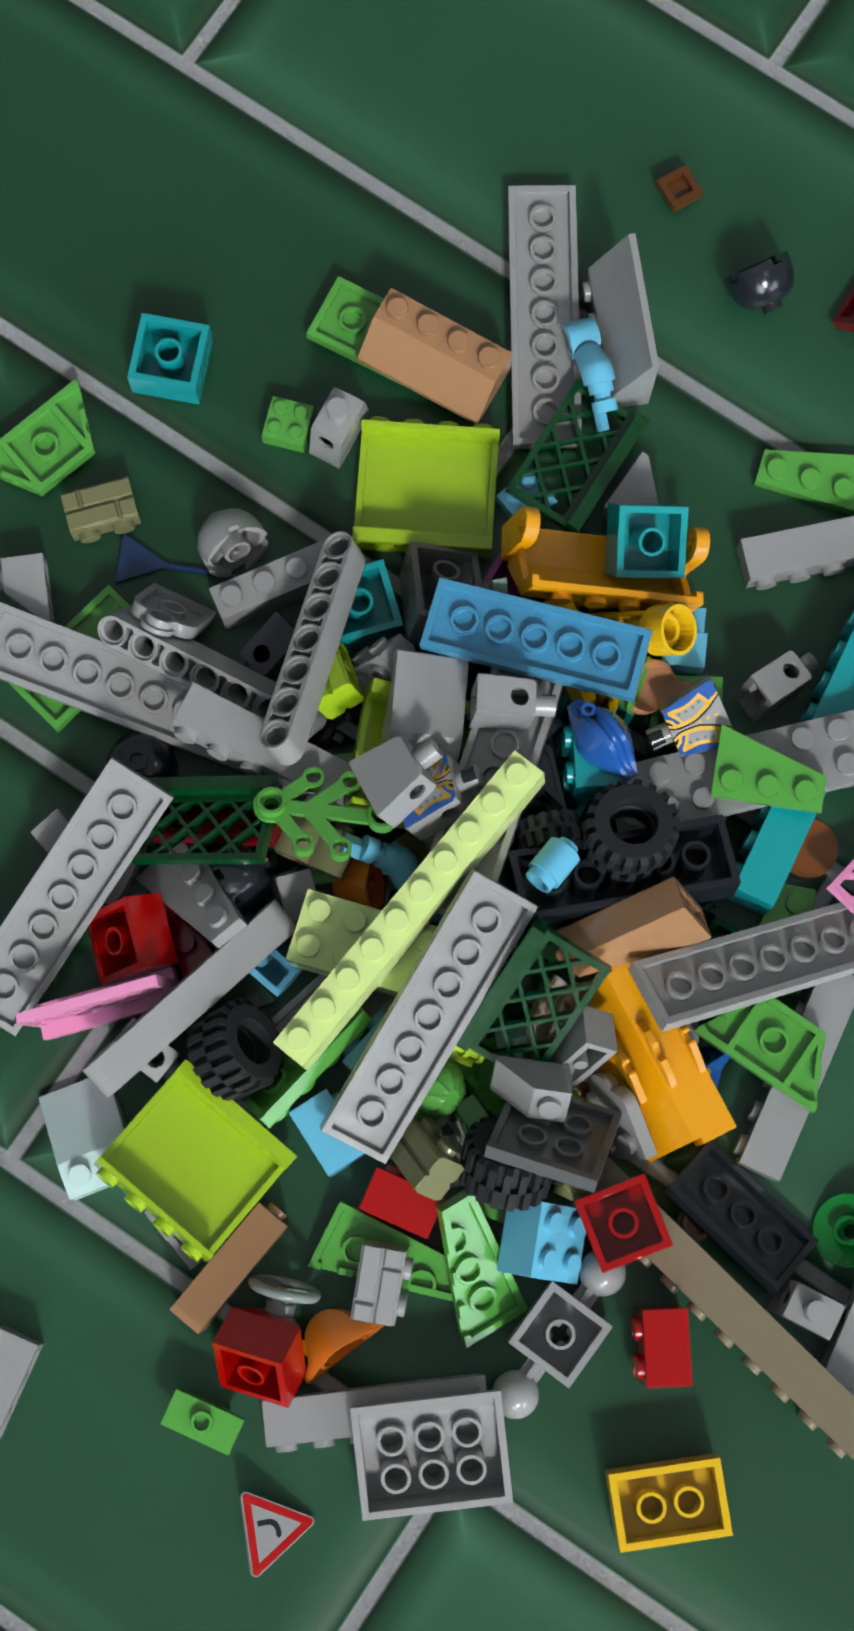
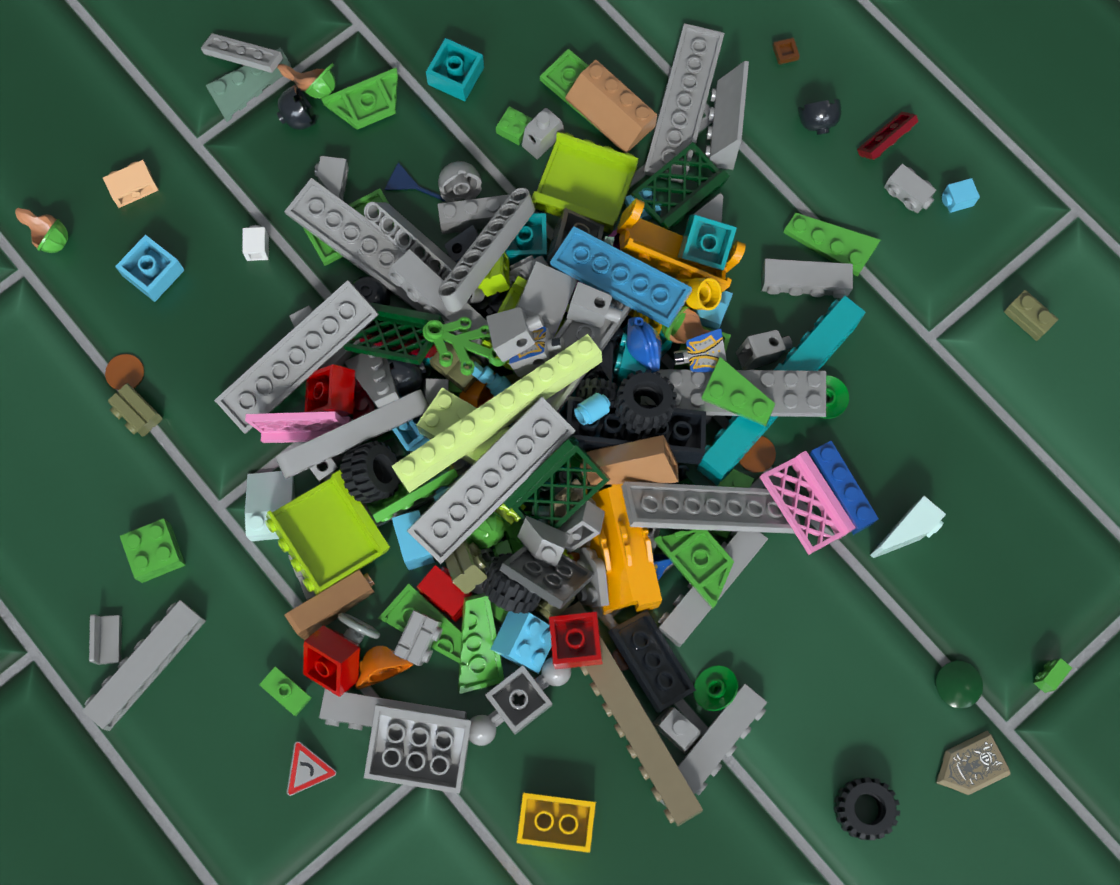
camera: 15 degrees right, 5 degrees down
(101, 510) = (388, 145): olive brick -> none
(170, 613) = (411, 213): light grey plate -> none
(593, 366) = (703, 136): medium azure piece -> none
(662, 1346) = (580, 724): red brick -> none

